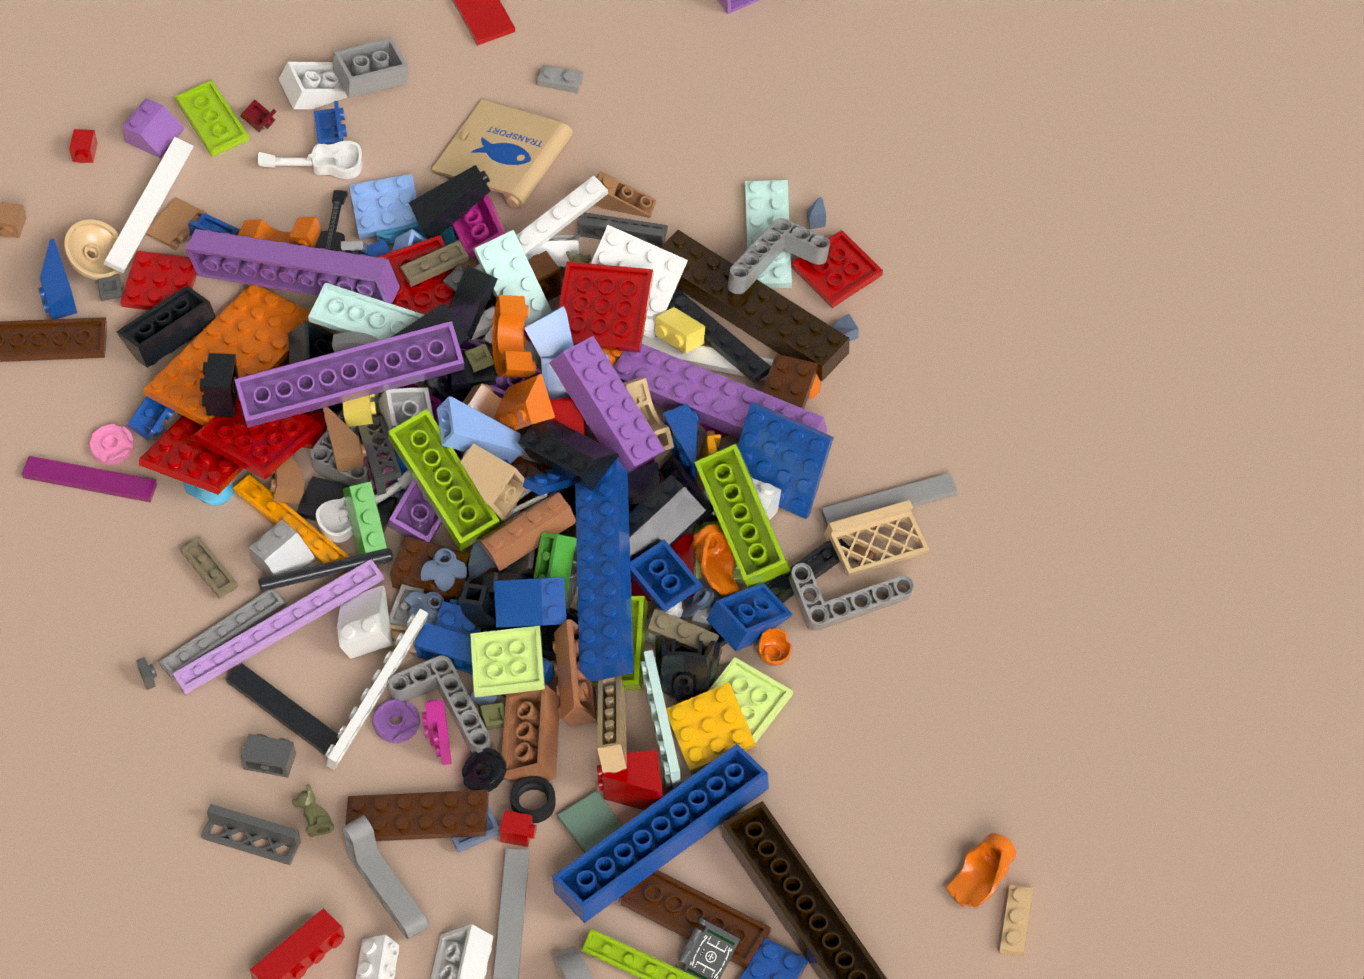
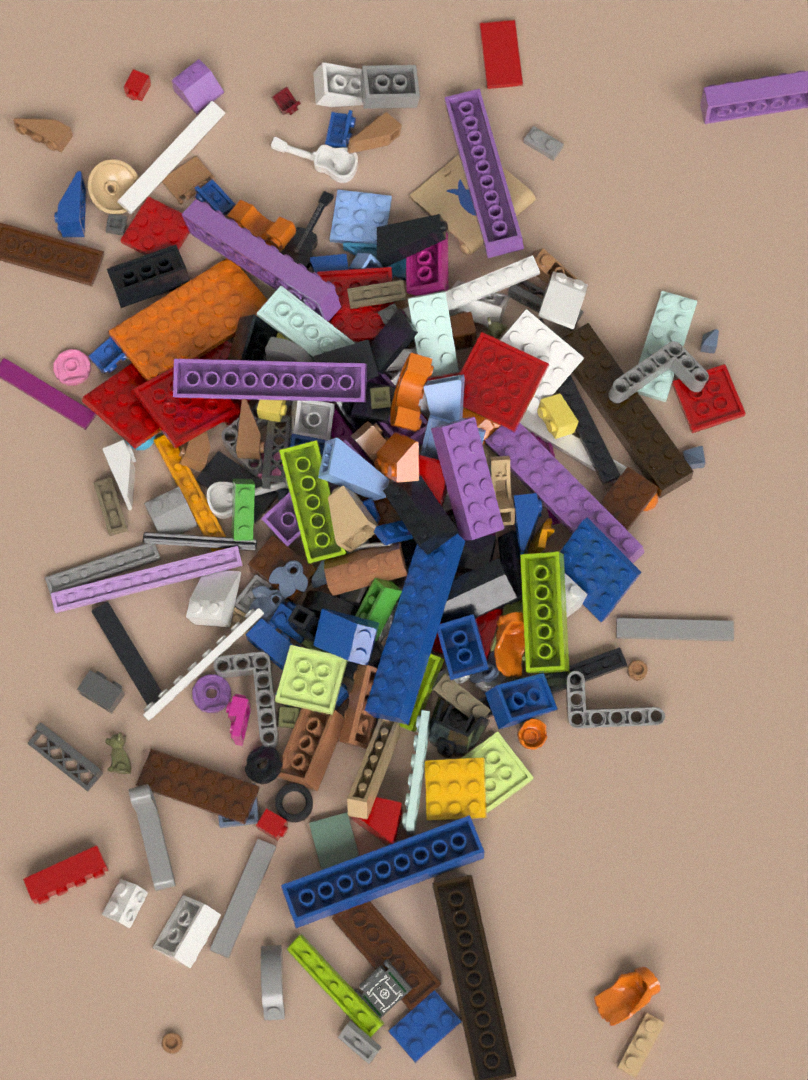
camera: 20 degrees right, 15 degrees up
(147, 673) = (31, 585): dark grey plate -> none
(205, 521) = (121, 464): none -> white slope
(212, 118) = (249, 90): lime tile -> none
(219, 385) = (167, 346): black brick -> none
(354, 247) = (314, 260): light grey tile -> none
(373, 118) = (377, 134): none -> medium nougat slope
(508, 119) = (484, 173): none -> medium lavender brick
(642, 213) = (563, 300): none -> white slope
(873, 520) = (645, 647): tan fence -> none

